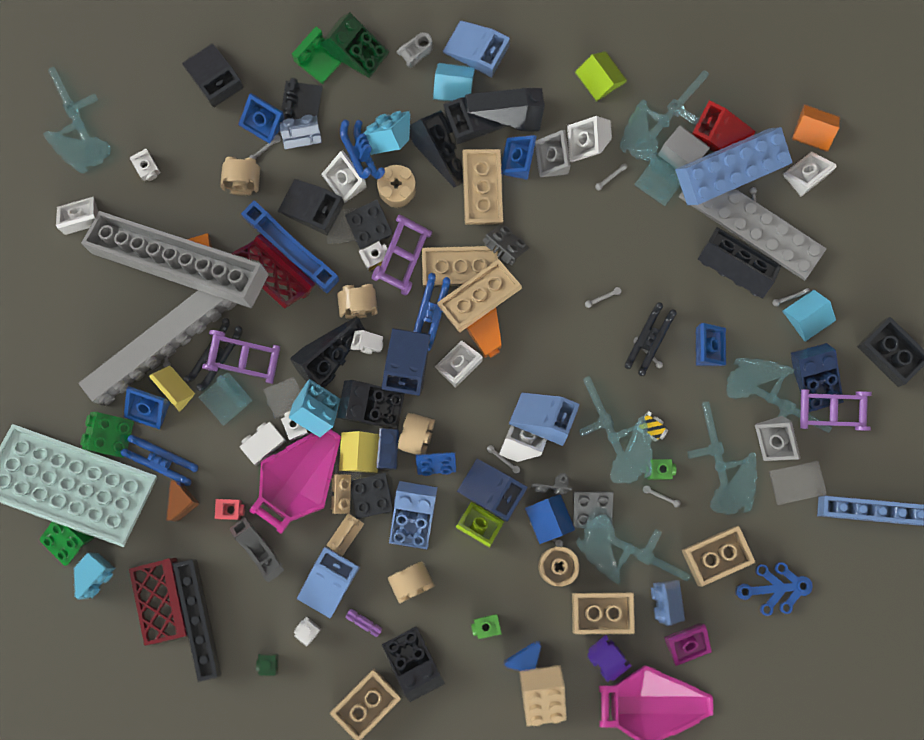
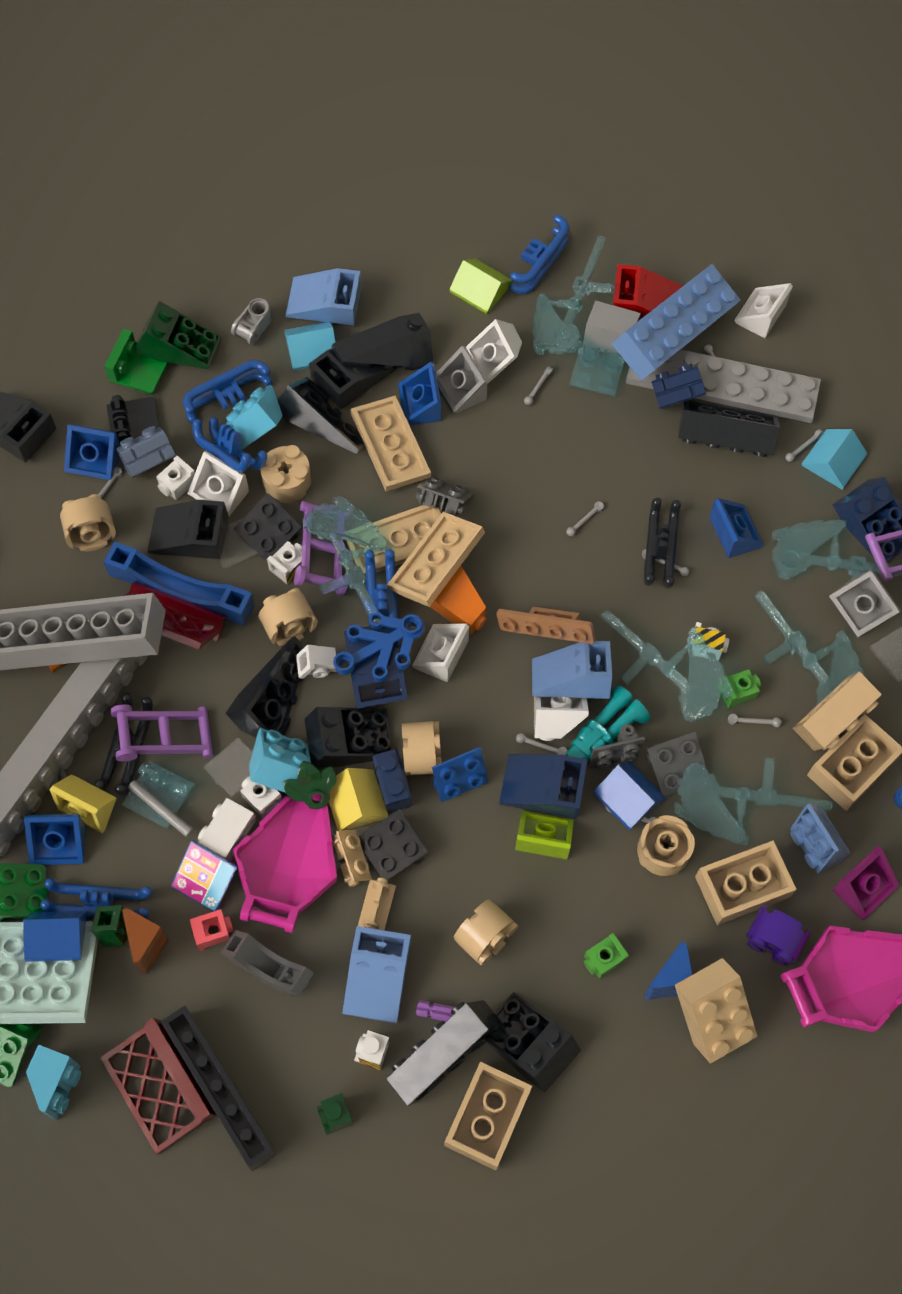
camera: 20 degrees left, 15 degrees down
(123, 476) = (54, 935): none -> blue slope
(163, 487) = (114, 931): none -> dark green brick
(223, 410) = (160, 808): none -> light grey bar
(236, 470) = (204, 876): none -> piece
(318, 166) = (175, 478): none -> white brick
(329, 433) = (311, 782): none -> dark green plate
(354, 652) = (443, 1050): none -> wedge
(376, 99) = (225, 387): none -> blue piece
(412, 515) = (455, 852): medium blue slope -> none
(415, 349) = (381, 643): none -> blue plant
(427, 244) = (351, 524): none -> clear light blue bar
(540, 469) = (595, 734): none -> teal piece
(543, 372) = (547, 623): none -> medium nougat bracket
(655, 69) = (541, 257): none -> blue piece
(714, 219) = (678, 386): none -> dark blue brick
(719, 517) = (838, 712): none -> tan brick
(816, 128) = (750, 262): orange slope -> none

